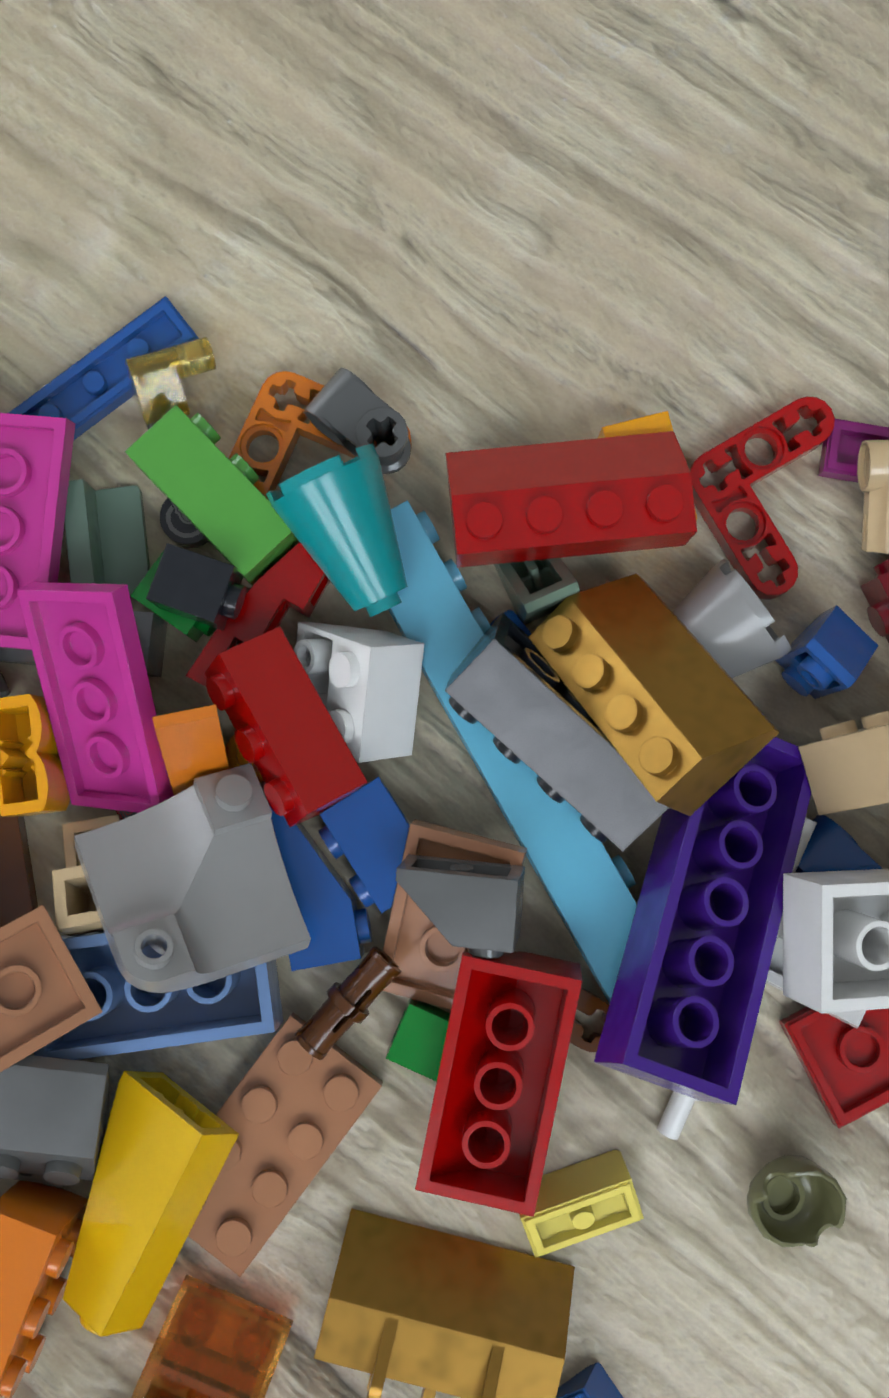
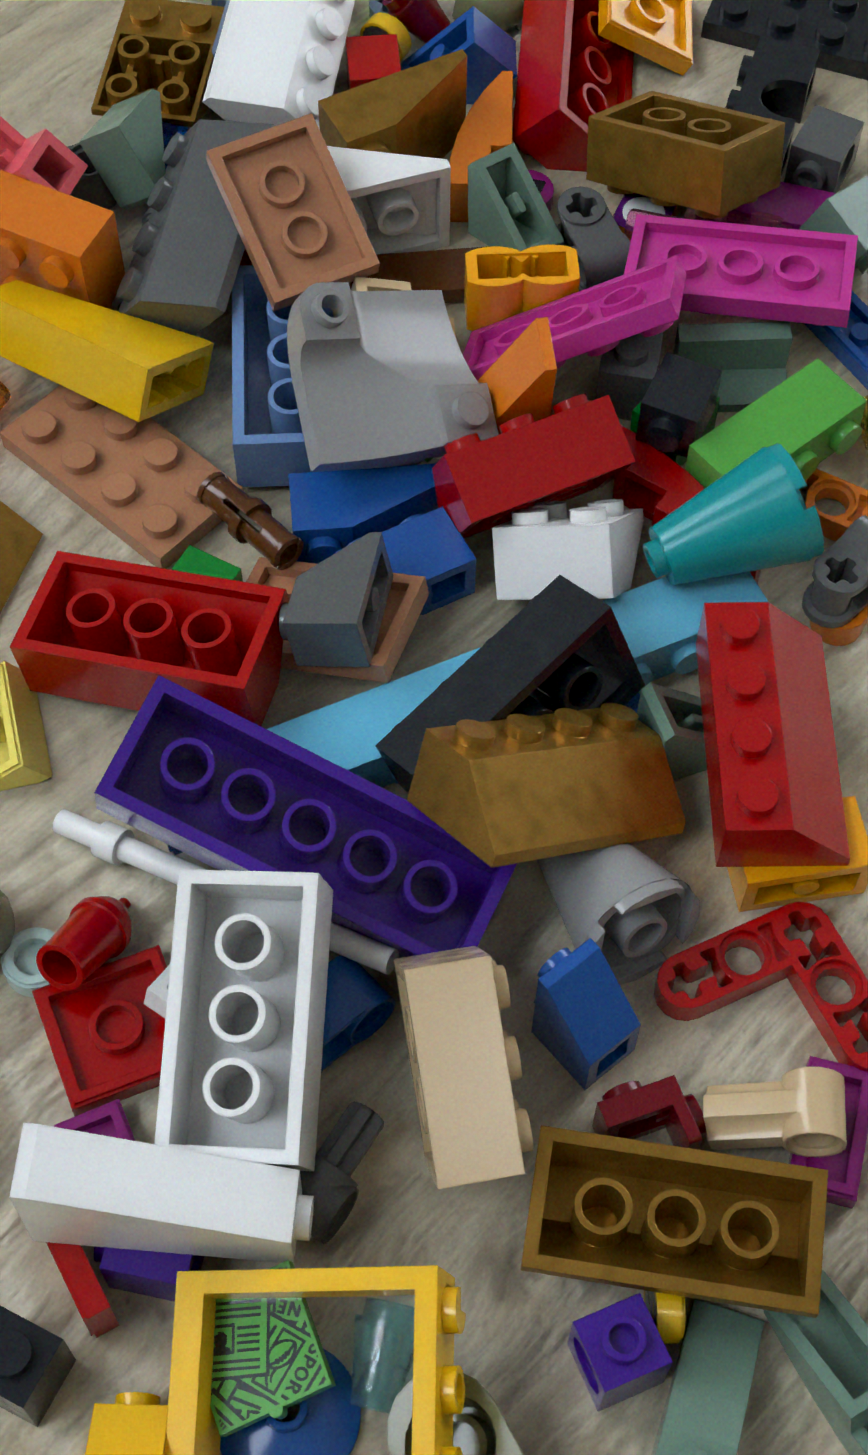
camera: 95 degrees right, 25 degrees down
(797, 1088) = (90, 936): none -> red piece
(805, 1129) = (20, 960): none -> light aqua tile

